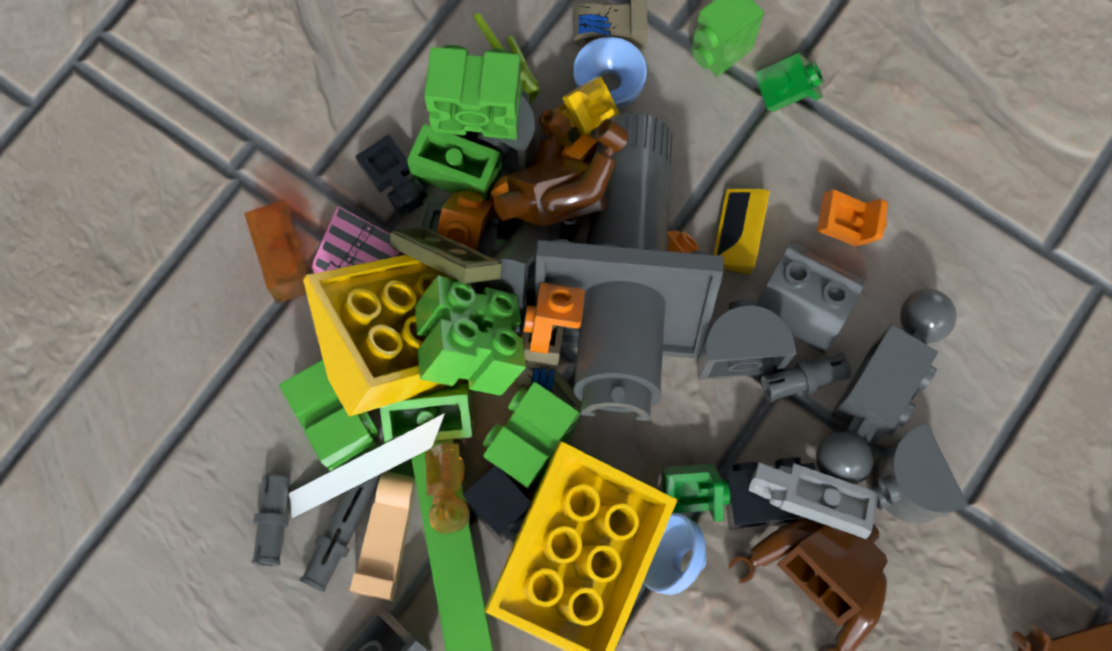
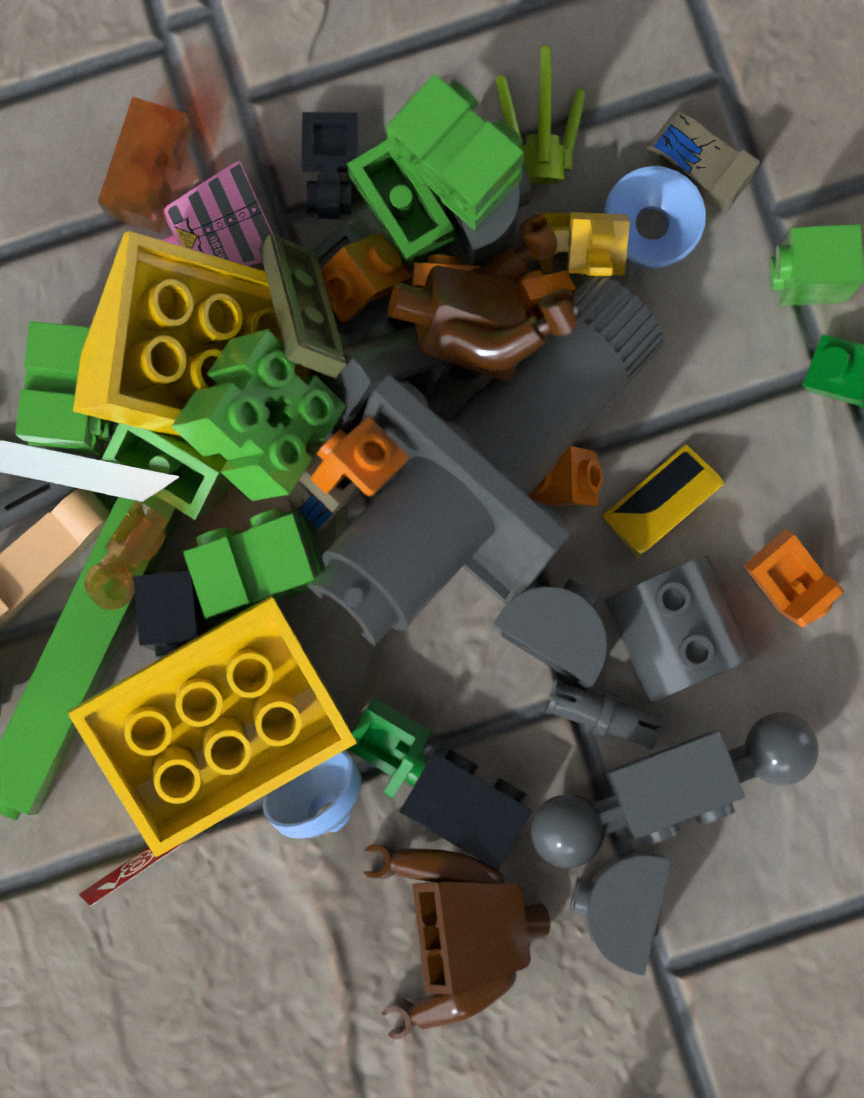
camera: 45 degrees right, 10 degrees up
(817, 497) = (501, 850): light grey hinge -> none

